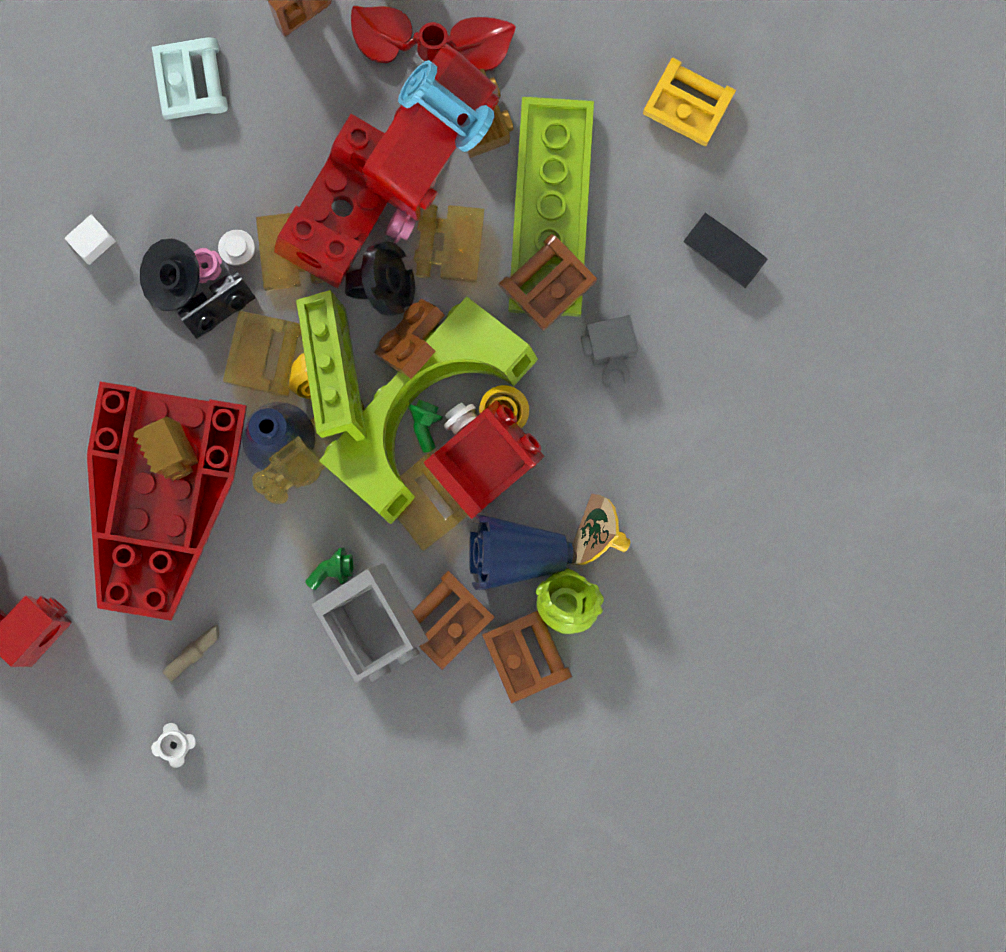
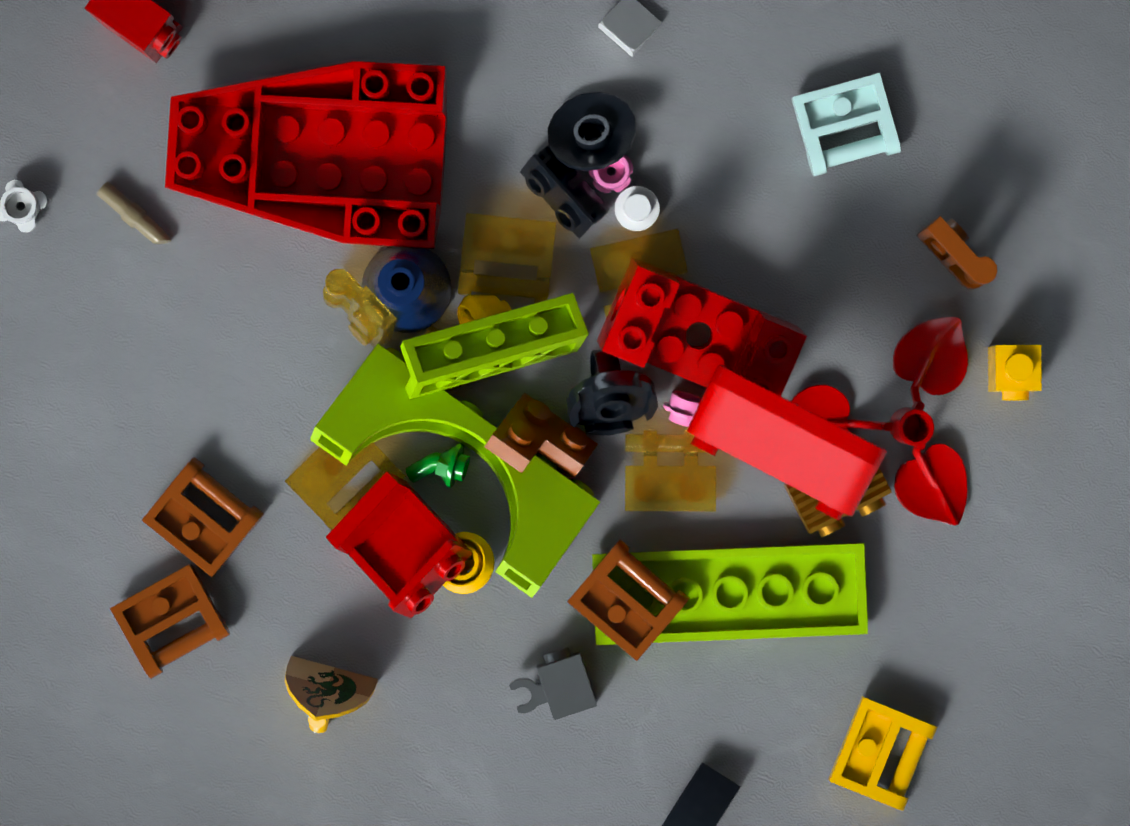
camera: 85 degrees right, 5 degrees up
(166, 448) = (366, 160): pearl gold brick -> none
(338, 566) = (253, 379): green plate -> none
(345, 636) = (166, 401): light grey window -> none
(443, 104) = (819, 429): medium azure hose -> none
(459, 417) = (451, 510): white plate -> none
(514, 552) = (290, 593): dark blue cone -> none
(568, 602) = (237, 665): lime hair -> none

